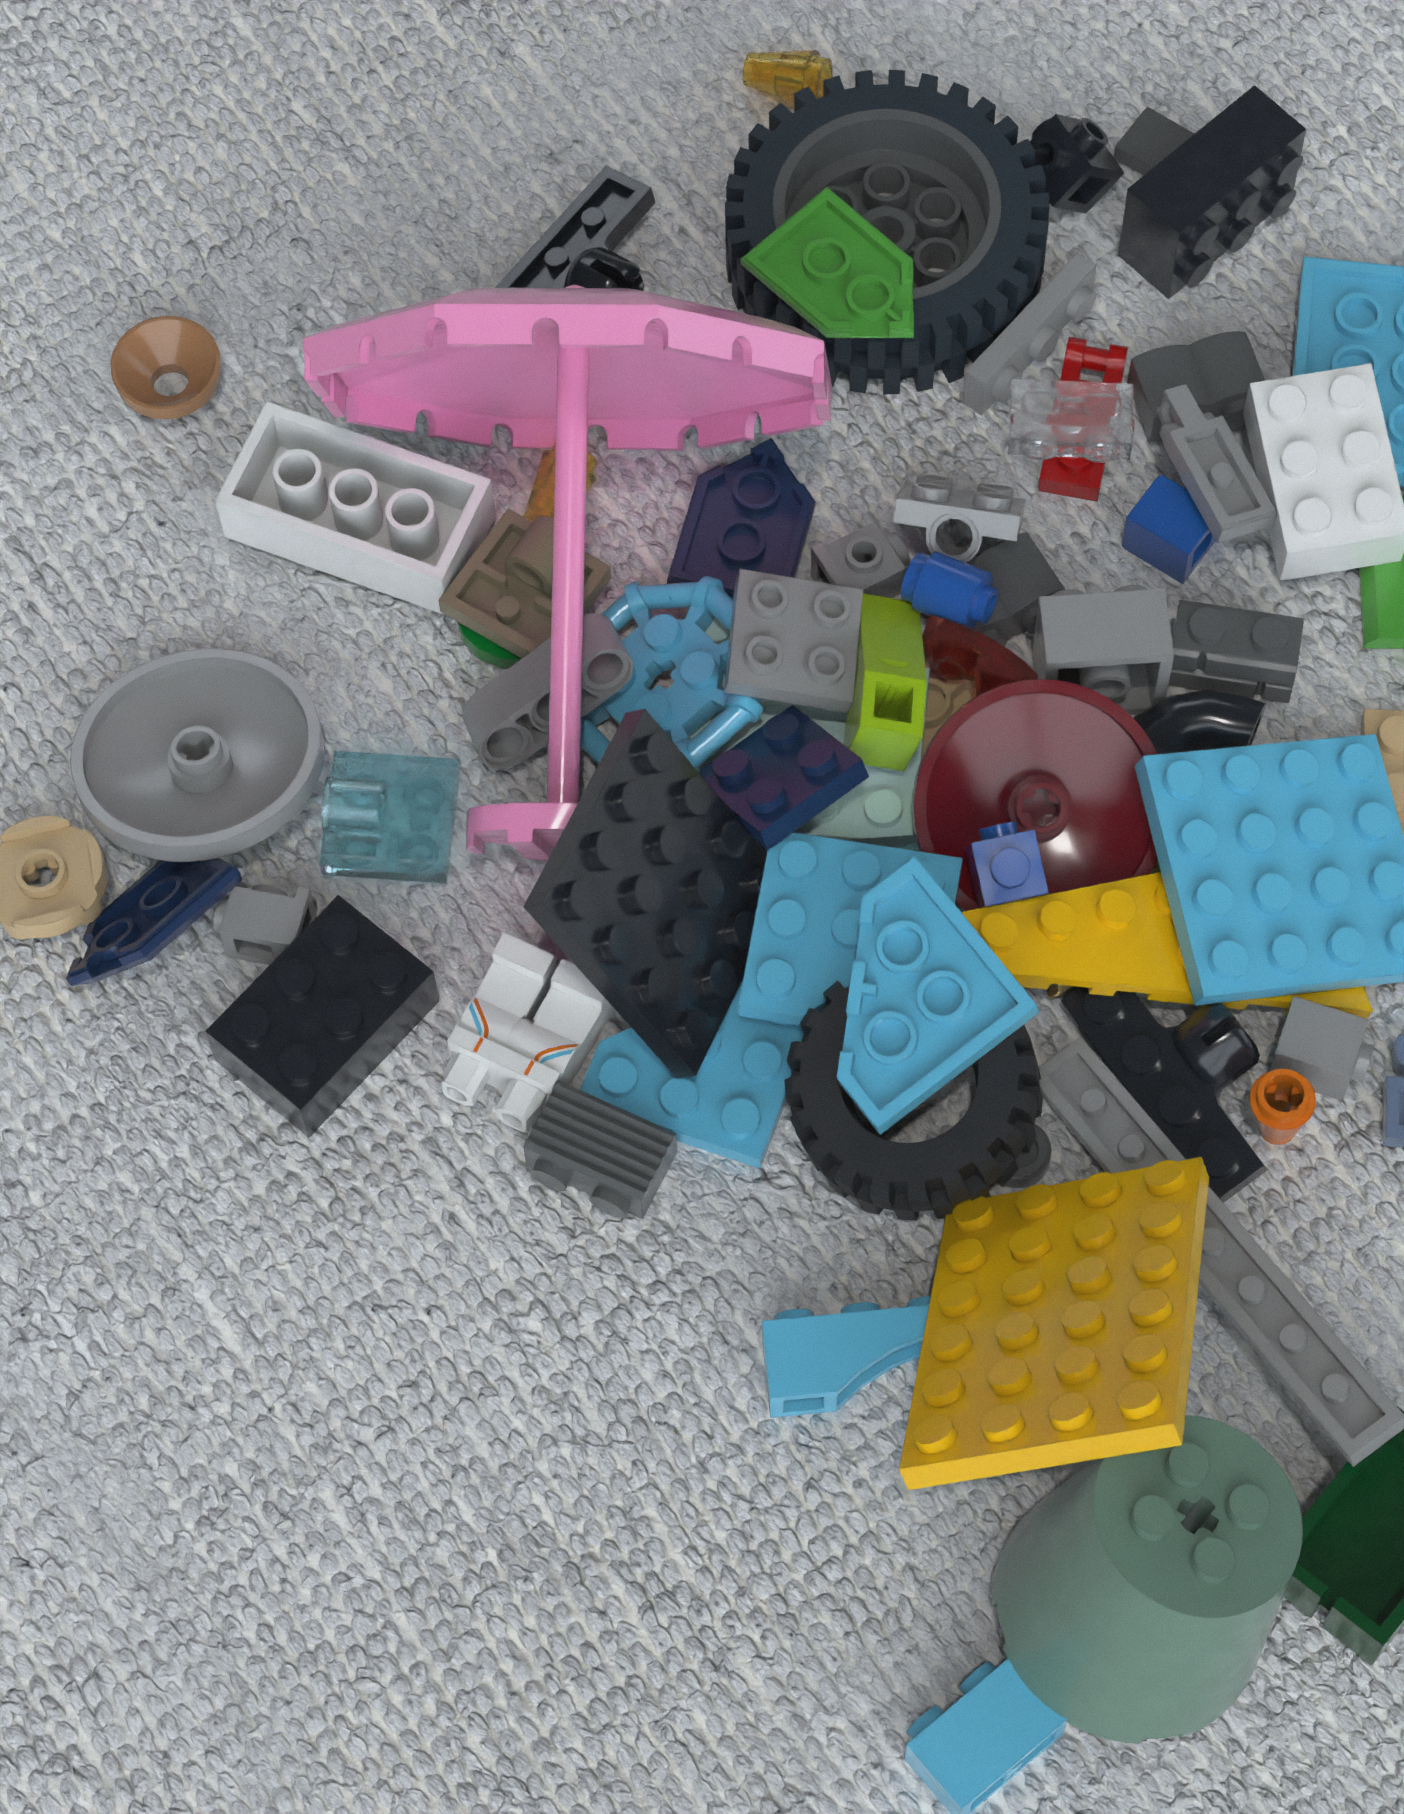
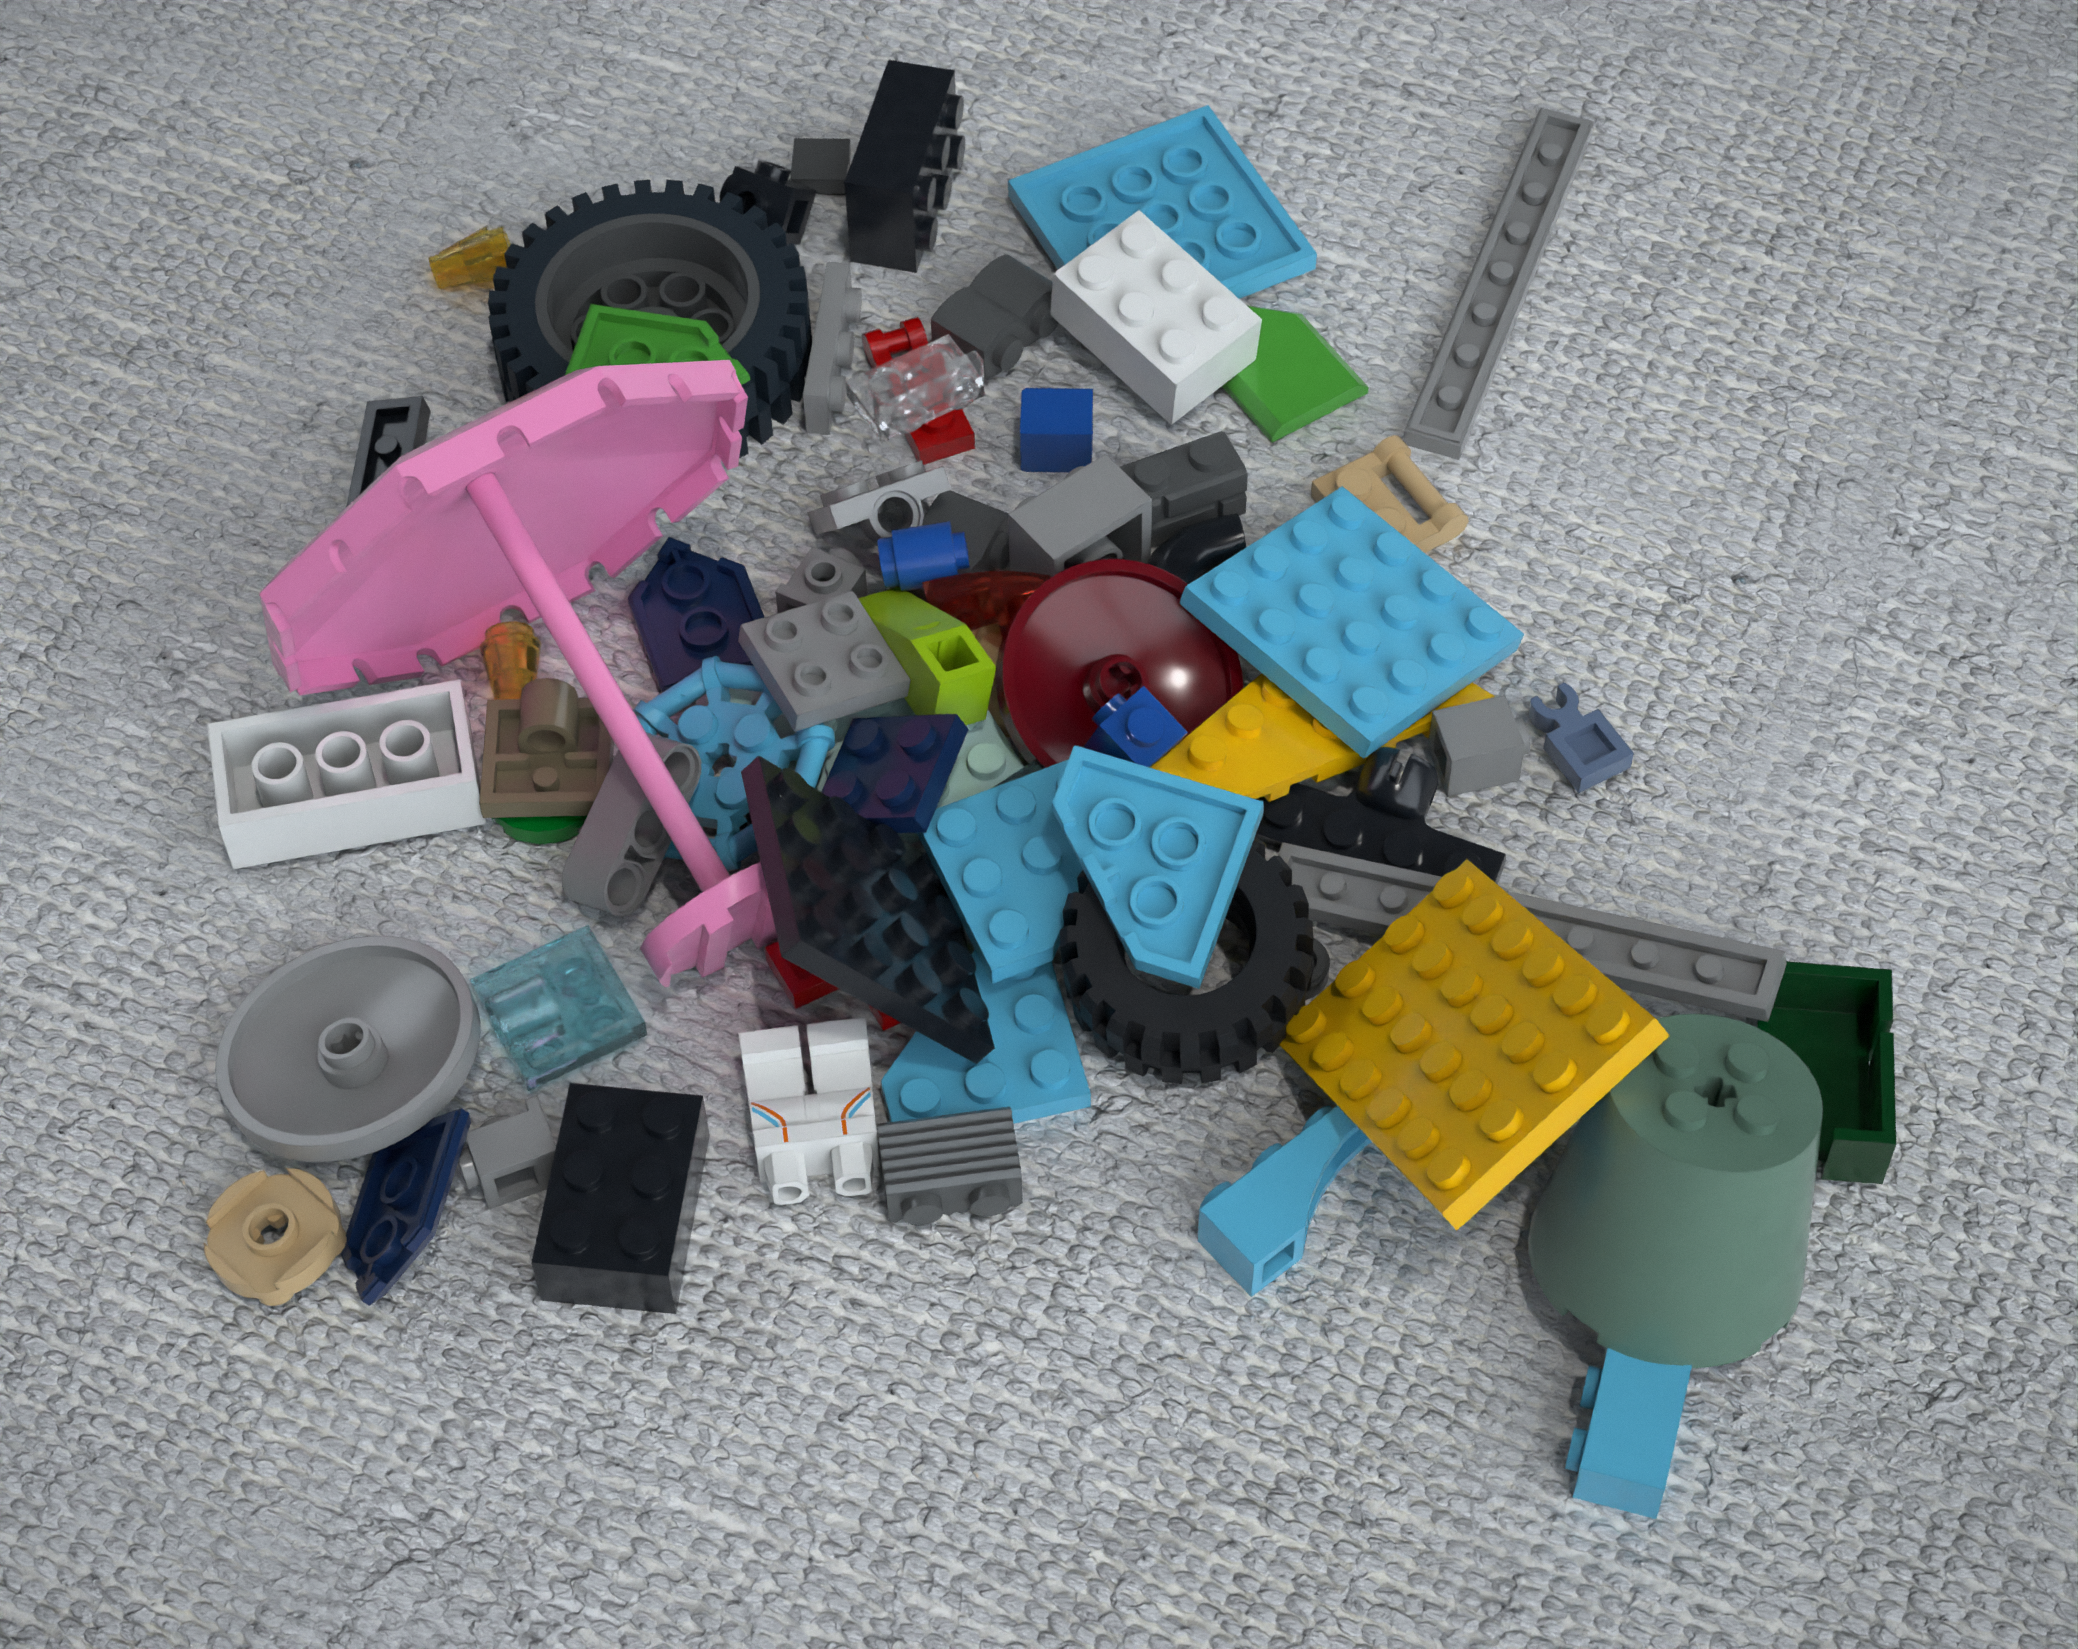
camera: 35 degrees left, 10 degrees down
(160, 348) = (76, 739): medium nougat piece -> none
(1213, 467) = (1064, 355): light grey hinge -> none
(1281, 1104) = (1486, 799): orange cone -> none

